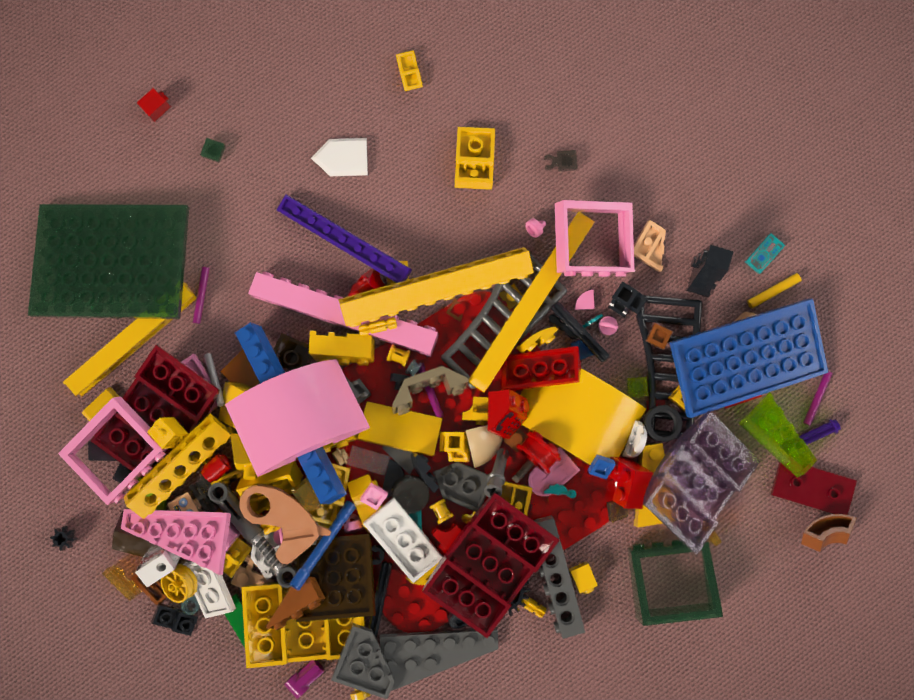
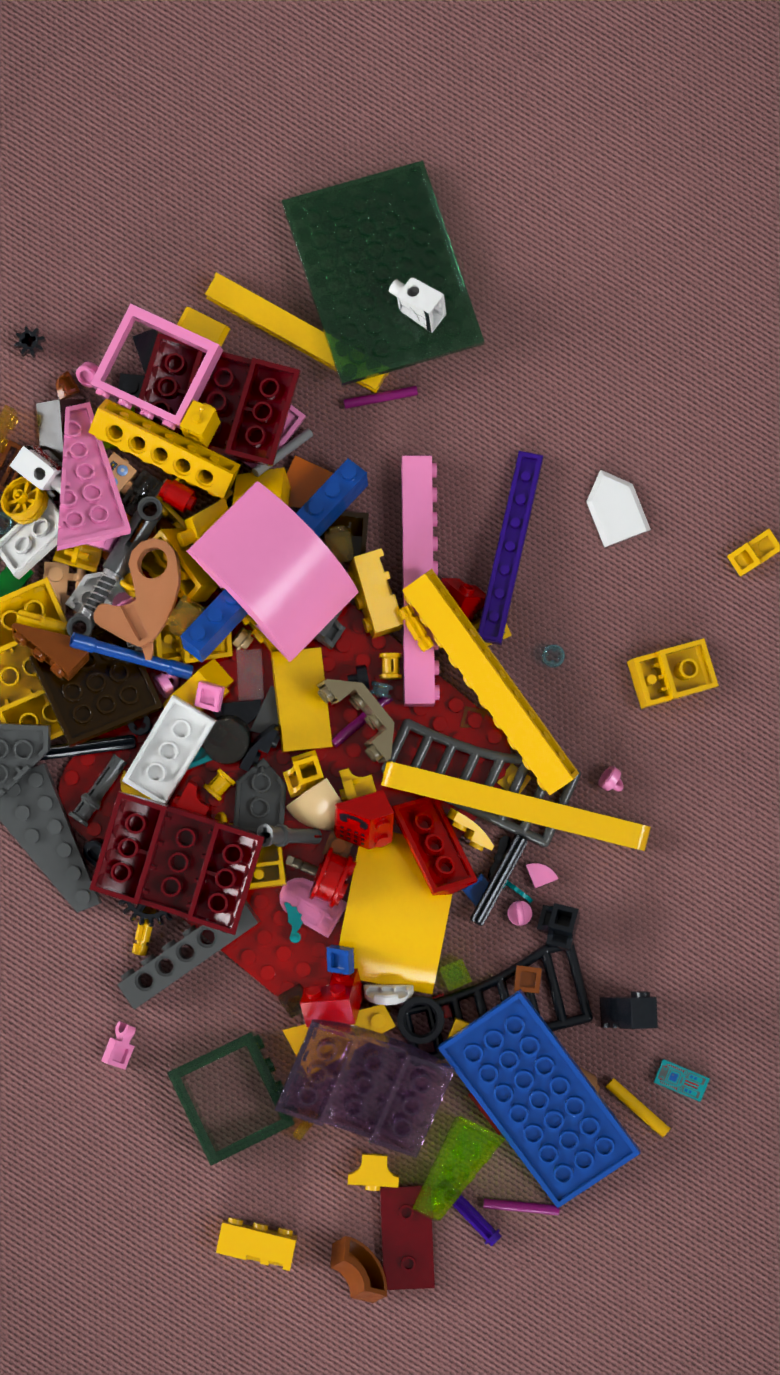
camera: 70 degrees right, 0 degrees up
(101, 506) = (86, 373): none -> bright pink tile
(107, 522) = (66, 386): none -> dark orange tile
(138, 239) = (420, 302): none -> white torso
(154, 104) = (597, 253): red brick -> none
(212, 150) = (565, 345): clear green plate -> none
(273, 603) = (41, 621): none -> yellow axle
(295, 360) = (340, 543): none -> clear yellow brick
(419, 609) = (92, 799): none -> dark grey pin
(427, 235) = (554, 648): none -> clear light blue bush
(564, 161) = (709, 788): clear smoke plate -> none
(583, 578) = (197, 987): yellow brick -> none
(609, 651) = (119, 1050): none -> bright pink plate
(625, 230) = (635, 897): bright pink window -> none
(650, 245) = (639, 931): light nougat wing -> none
(761, 496) = (373, 1173): none -> yellow brick
(785, 599) = (257, 1243): none -> yellow wedge

